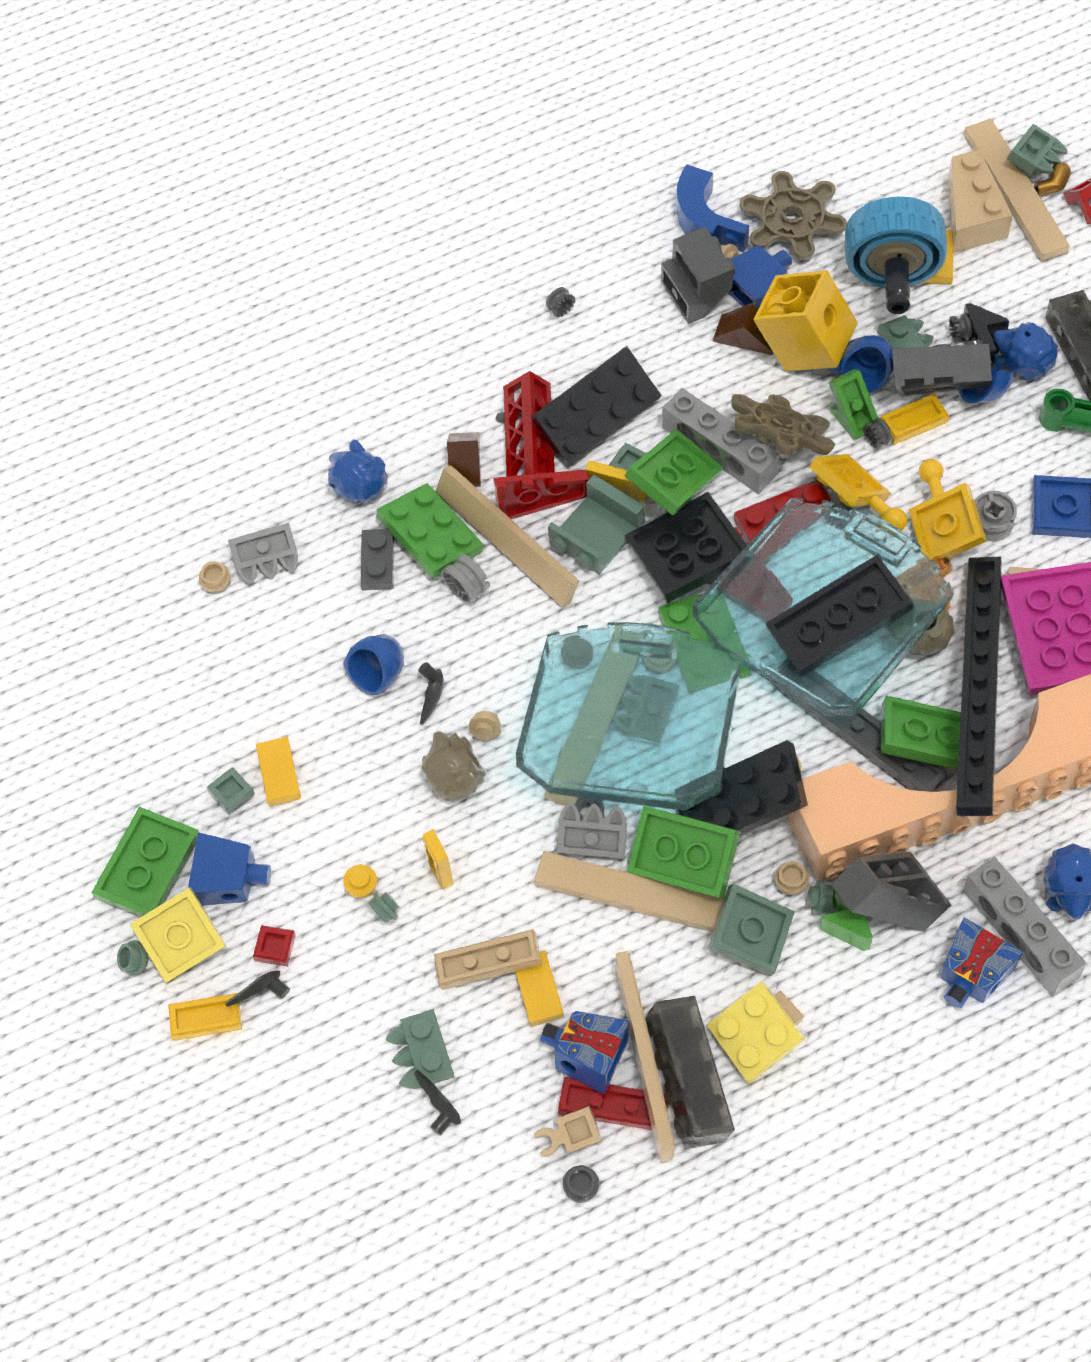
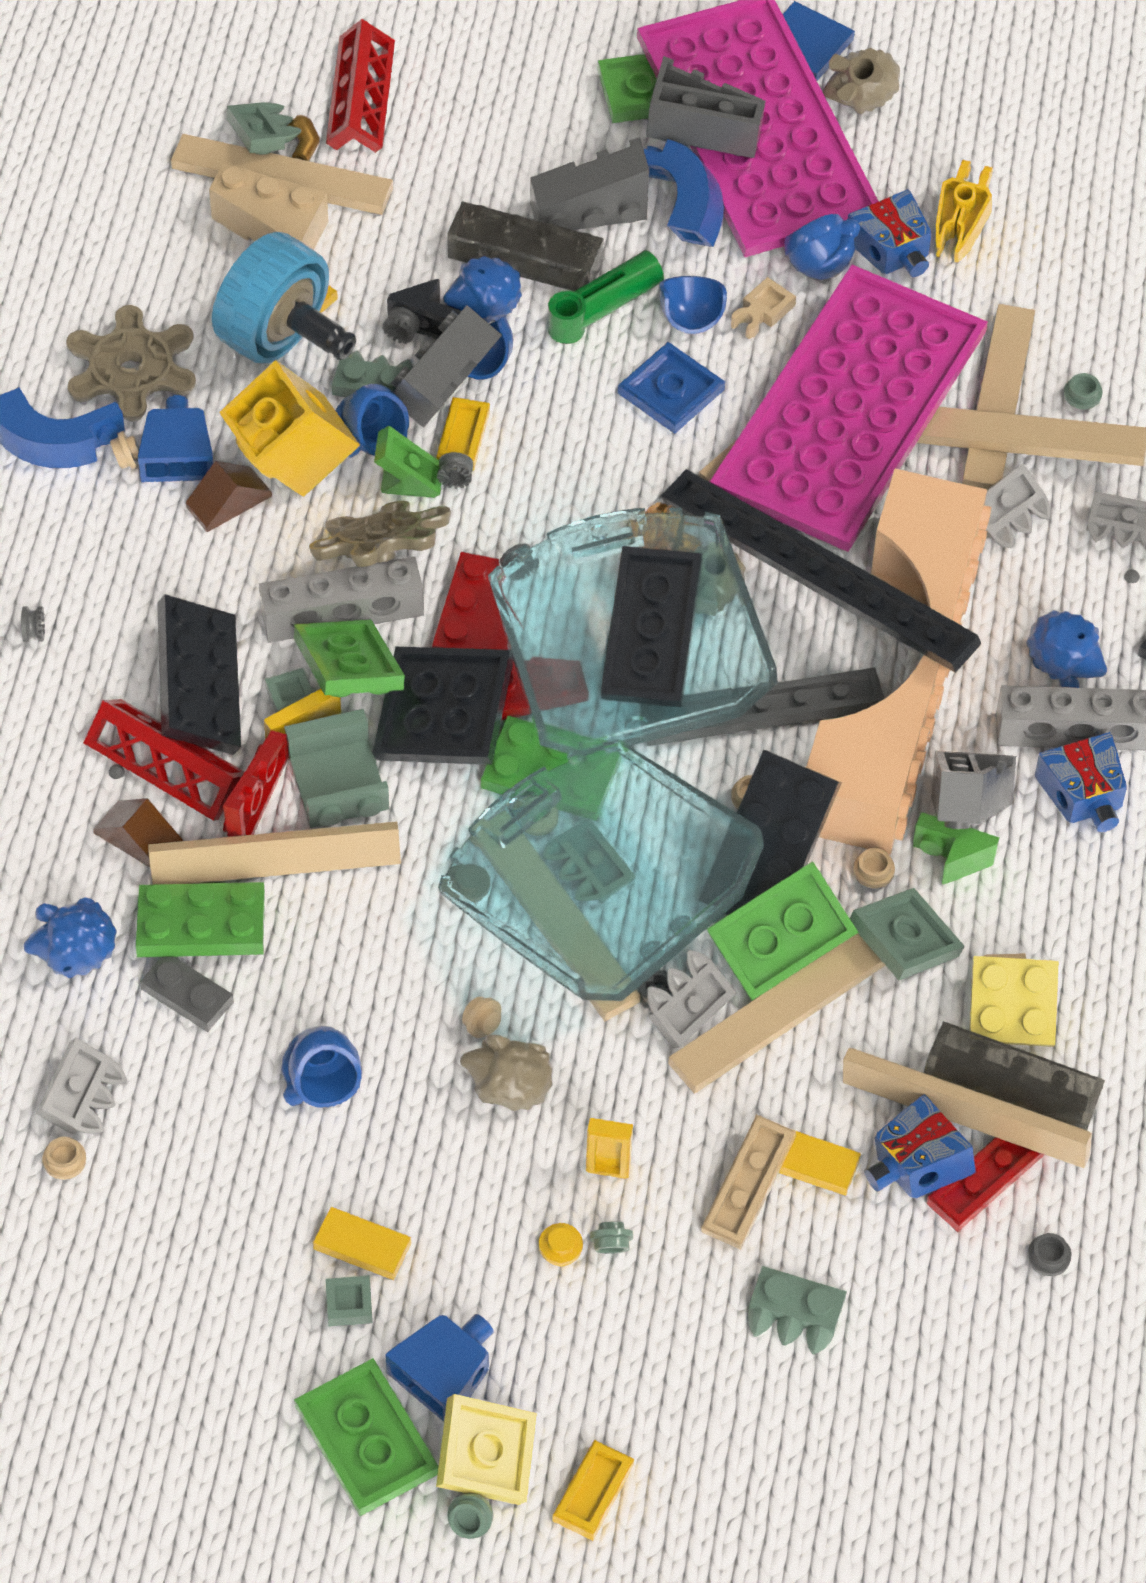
camera: 60 degrees left, 5 degrees down
(261, 985) = (604, 1402): pearl dark grey bar -> none
(274, 945) = (565, 1373): red tile -> none
(433, 690) = (395, 1041): pearl dark grey bar -> none
(441, 1103) = (873, 1324): pearl dark grey bar -> none
(465, 579) = (296, 921): light grey wheel -> none
(575, 1131) = (994, 1224): tan plate -> none
(697, 274) = (131, 483): dark grey piece -> none
(820, 897) = (916, 857): sand green plate -> none
(856, 486) = (508, 524): yellow plate -> none
(920, 732) = (829, 651): bright green plate -> none
(947, 520) = (606, 479): yellow plate -> none
(1004, 507) = (633, 446): light grey wheel -> none

